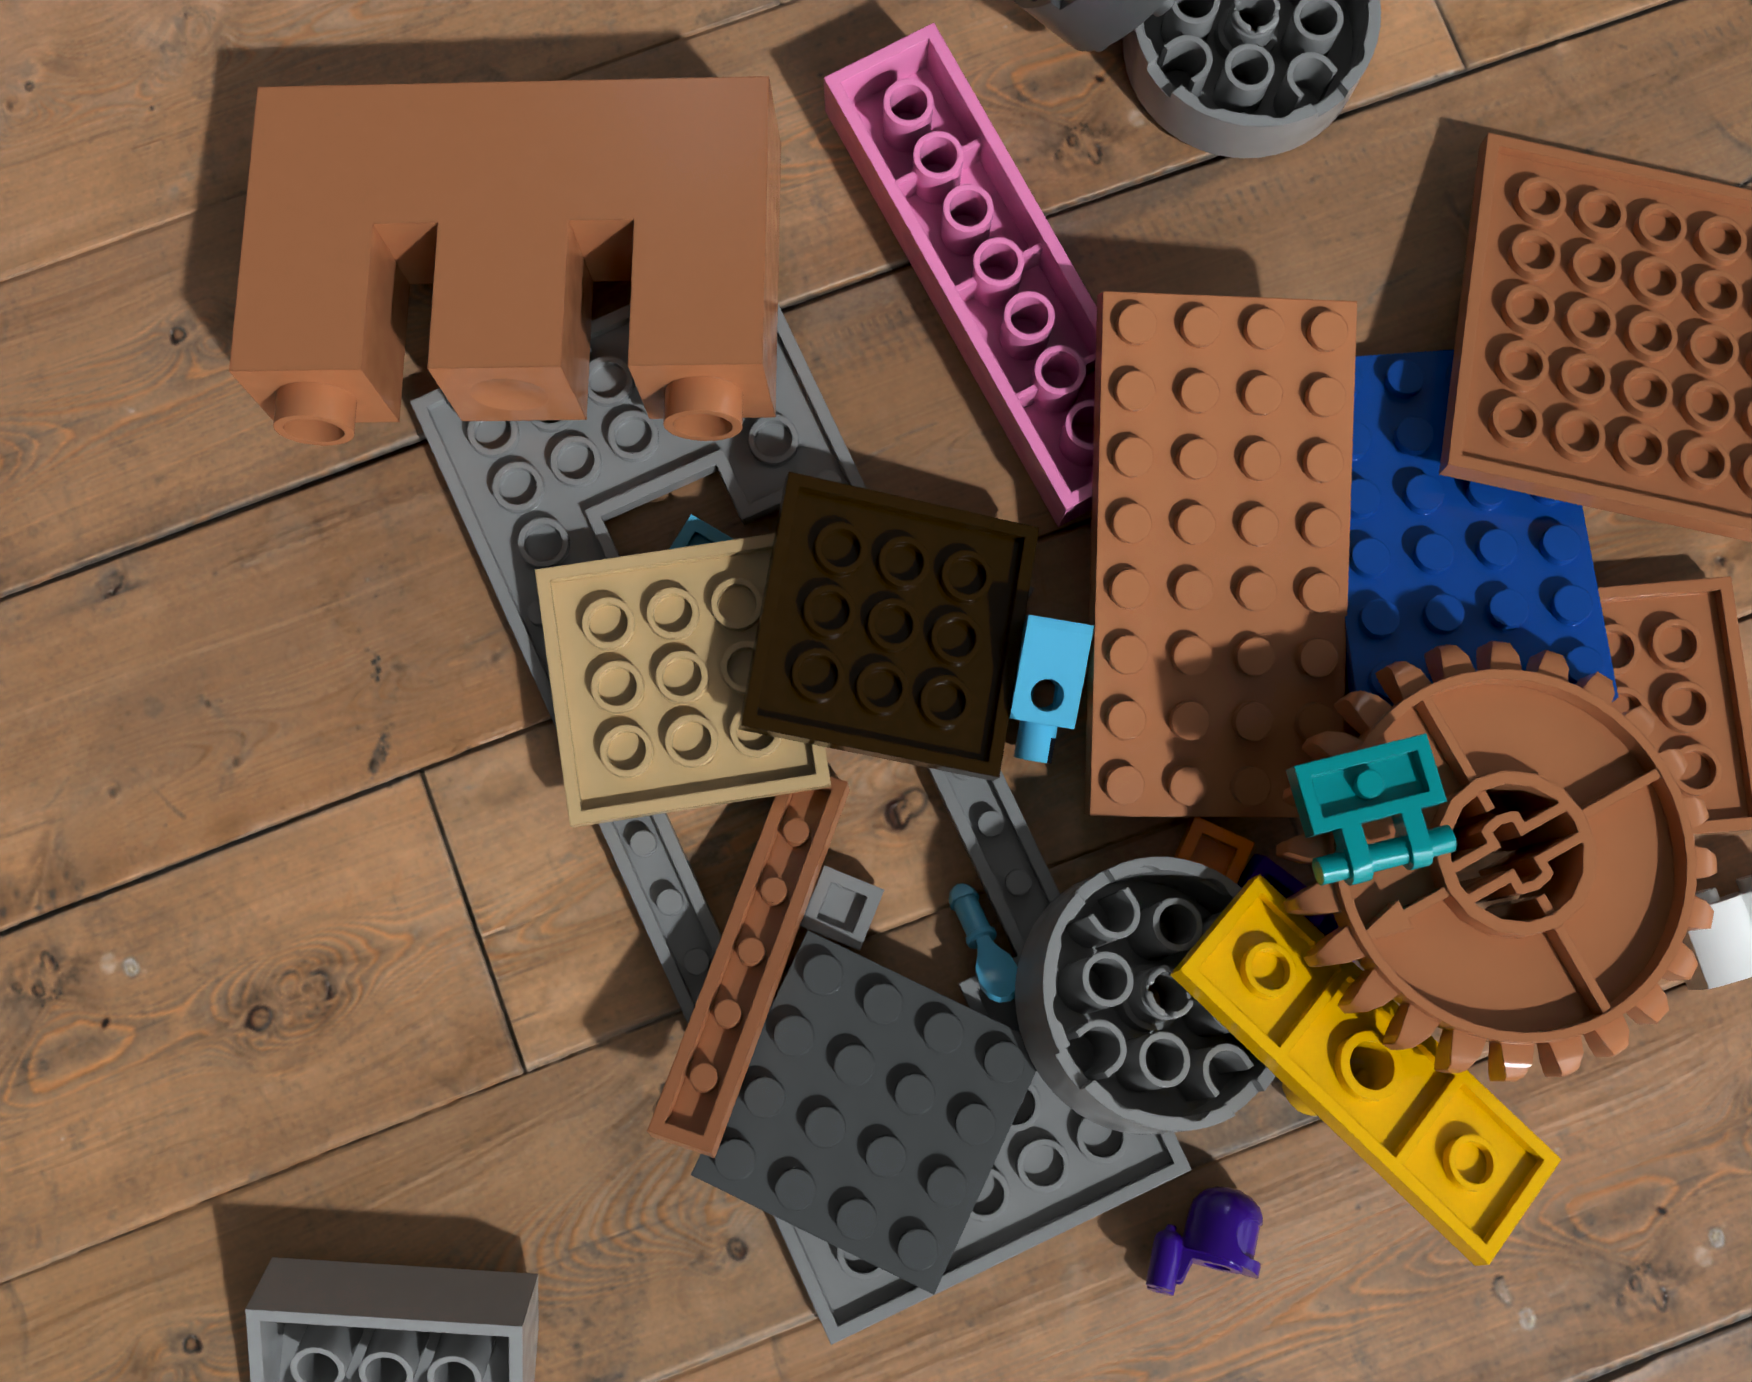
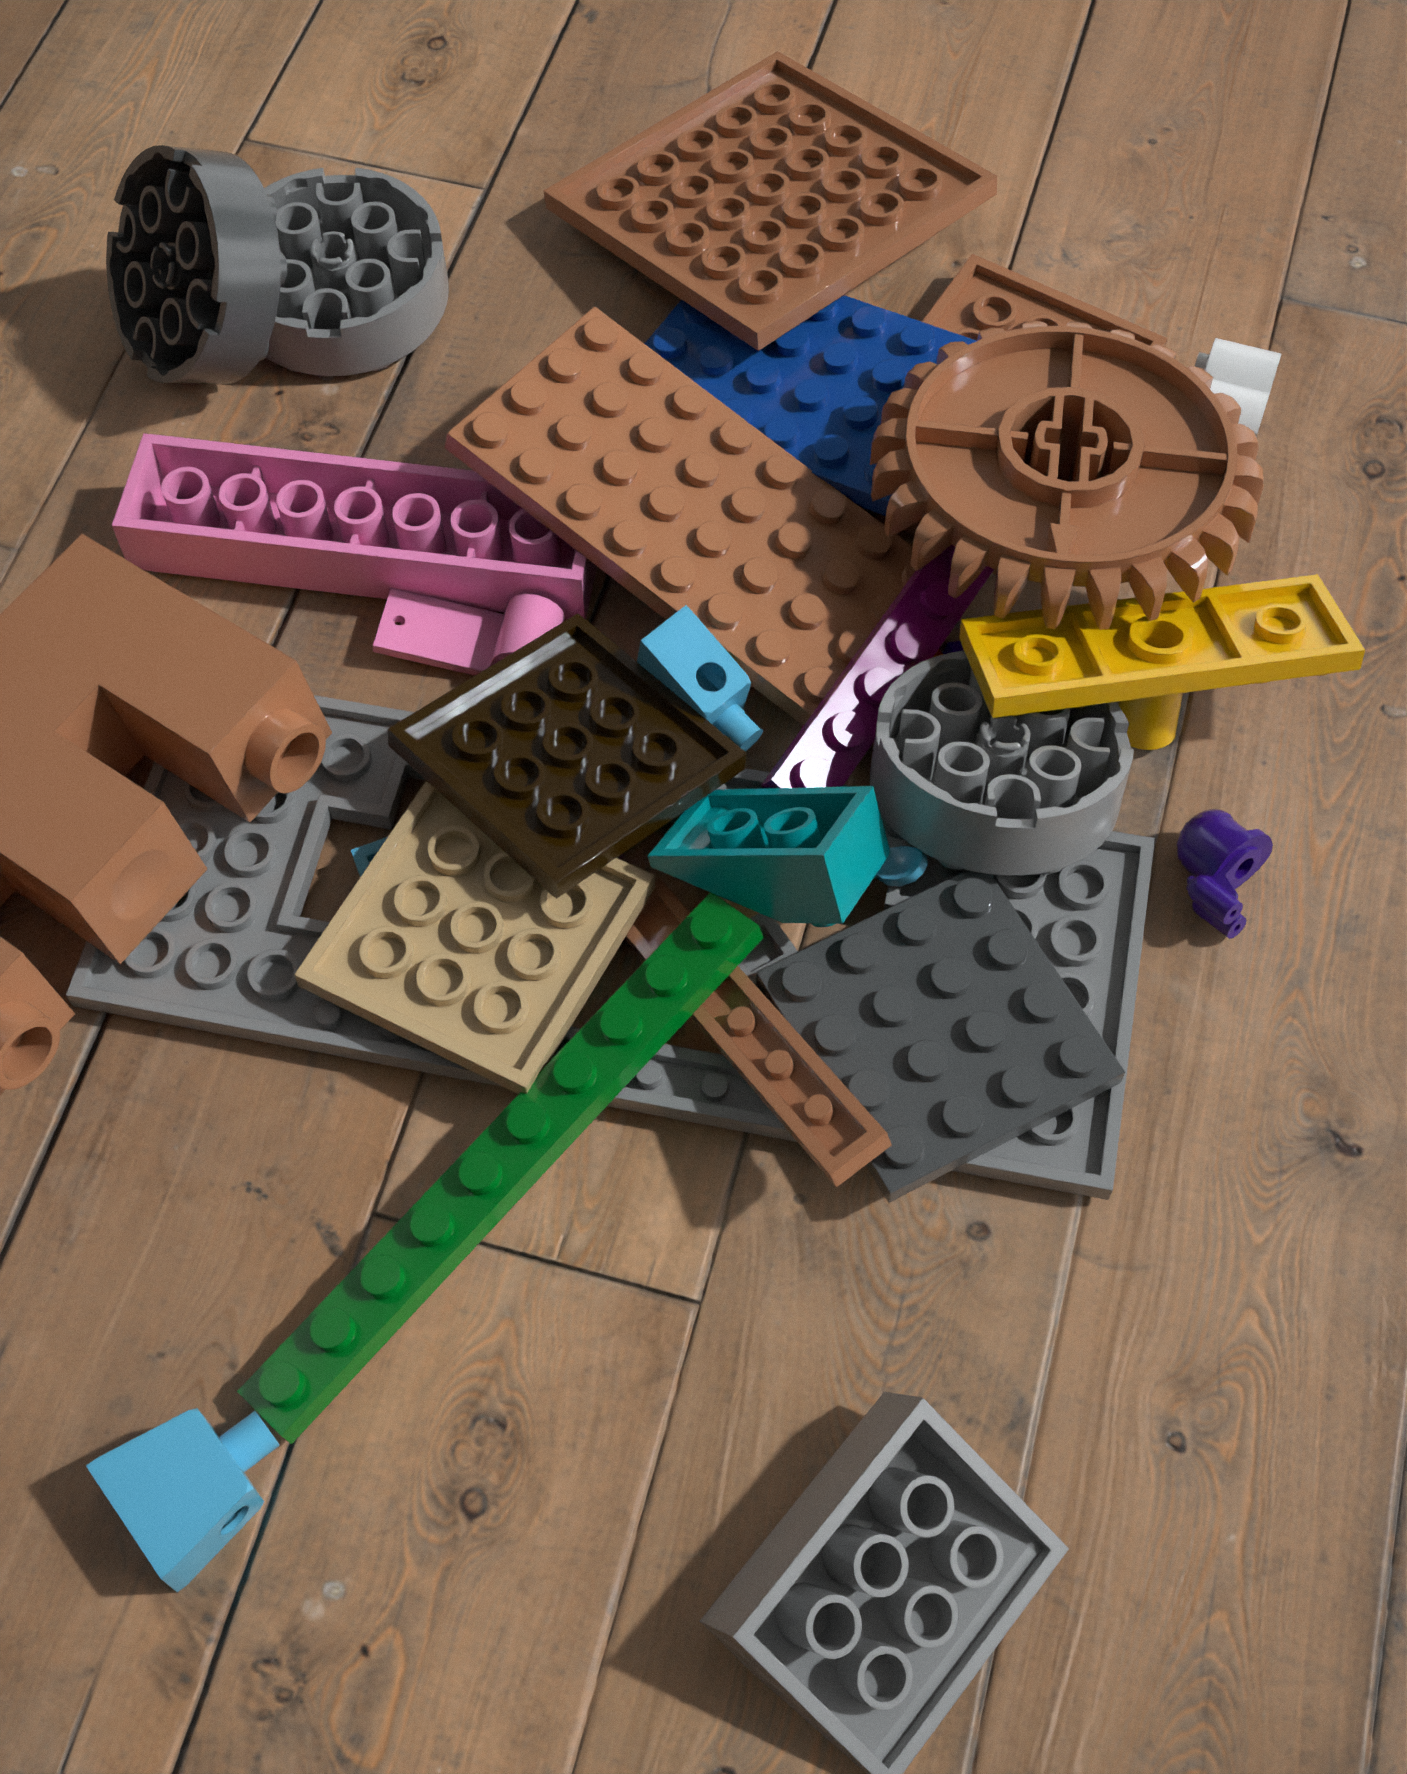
camera: 50 degrees left, 20 degrees down
(111, 810) = (185, 1489): none -> medium azure torso
(523, 851) = (498, 1169): none -> green plate
(921, 872) = (780, 849): none -> teal slope
(967, 439) = (458, 634): none -> bright pink door
(1117, 830) = (847, 716): none -> magenta plate
(1365, 787) = (951, 483): teal plate -> none

